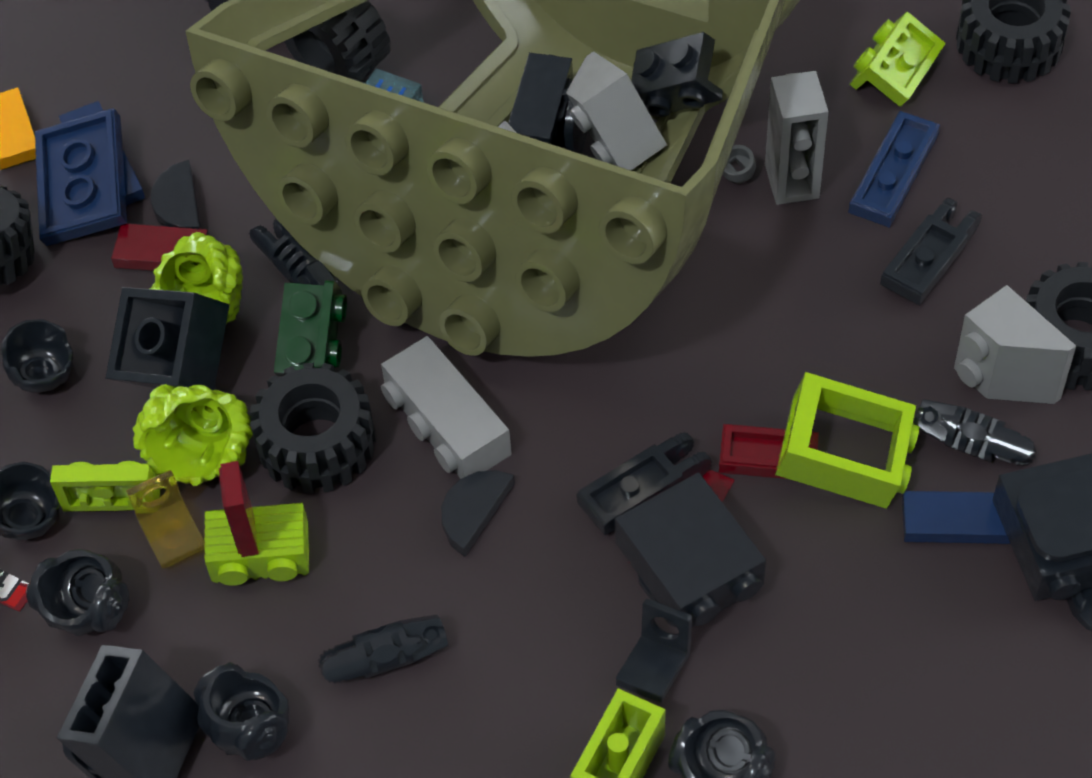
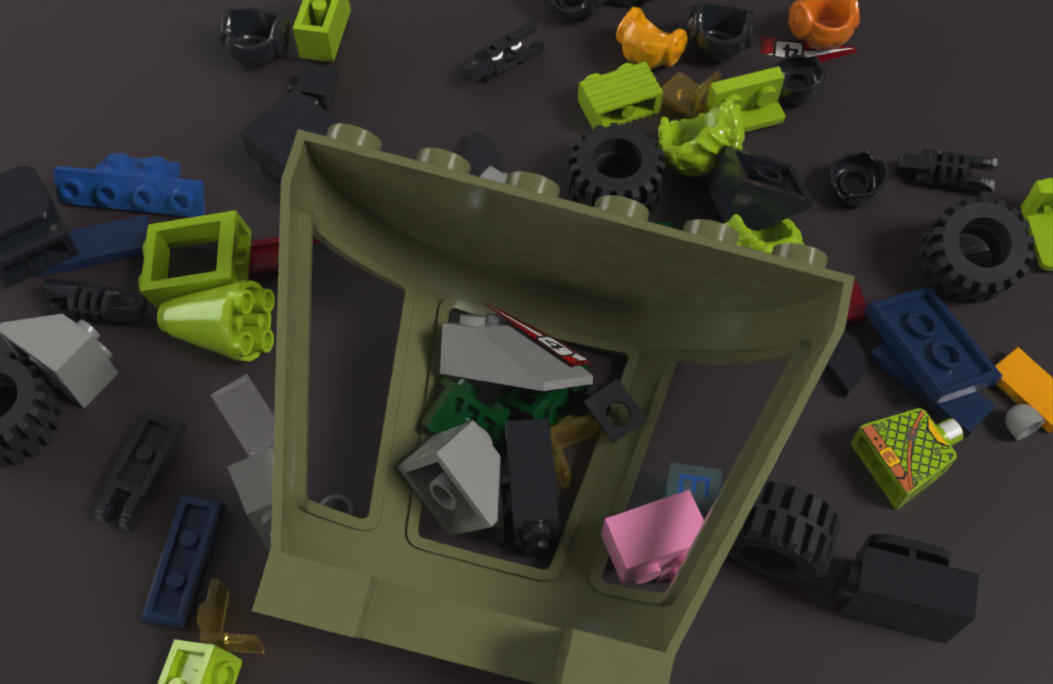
camera: 160 degrees right, 5 degrees up
(42, 97) = (1023, 421): none -> light grey hinge
(163, 95) = (907, 452): none -> torso
(179, 600) = (645, 42): none -> light orange hair
(238, 509) = (626, 54): dark red tile -> none
(443, 43) = (652, 538): none -> bright pink brick
(676, 75) = (401, 516): black bracket -> none
(811, 281) = (246, 415): none -> clear tile
(826, 348) = (223, 319): none -> lime cone
(868, 94) = (211, 622): none -> clear yellow bracket
(916, 587) = (131, 185): none -> blue bracket

